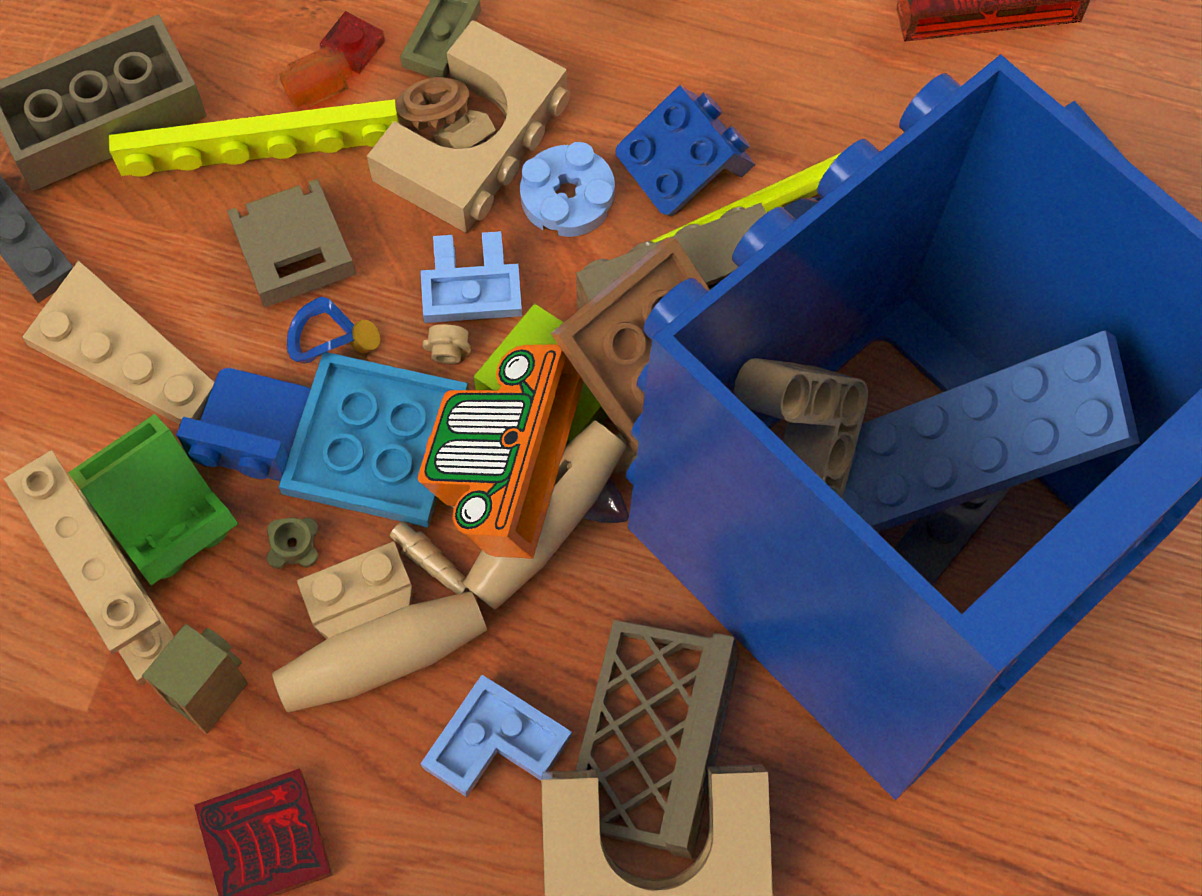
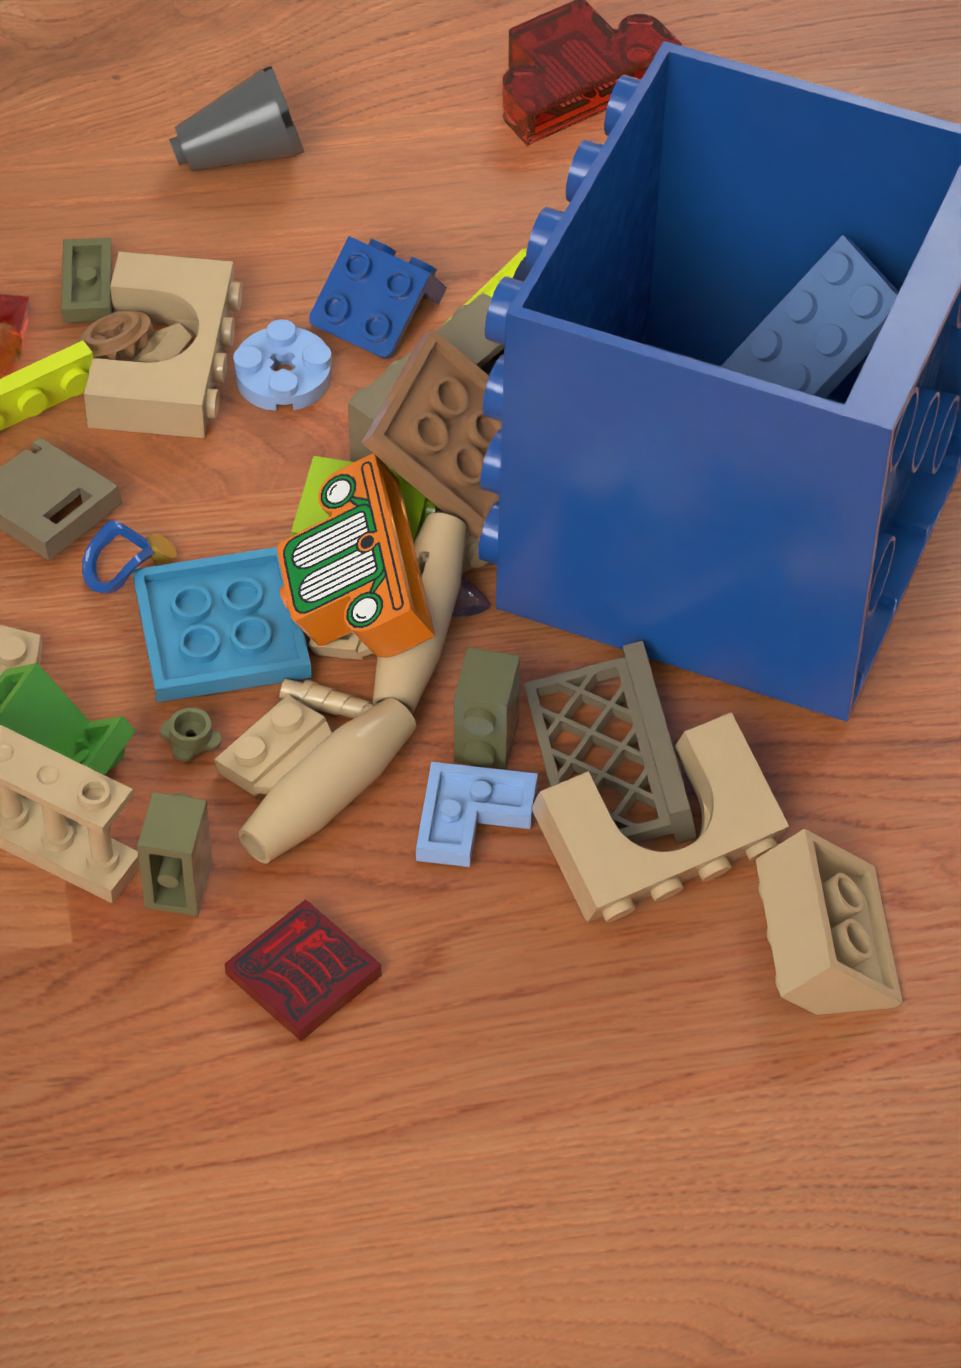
camera: 25 degrees left, 15 degrees down
(246, 424) = (97, 654): blue bracket -> none
(447, 343) = (243, 525): tan plate -> none
(470, 291) = (242, 477): light blue plate -> none
(551, 647) = (486, 708): none -> olive brick

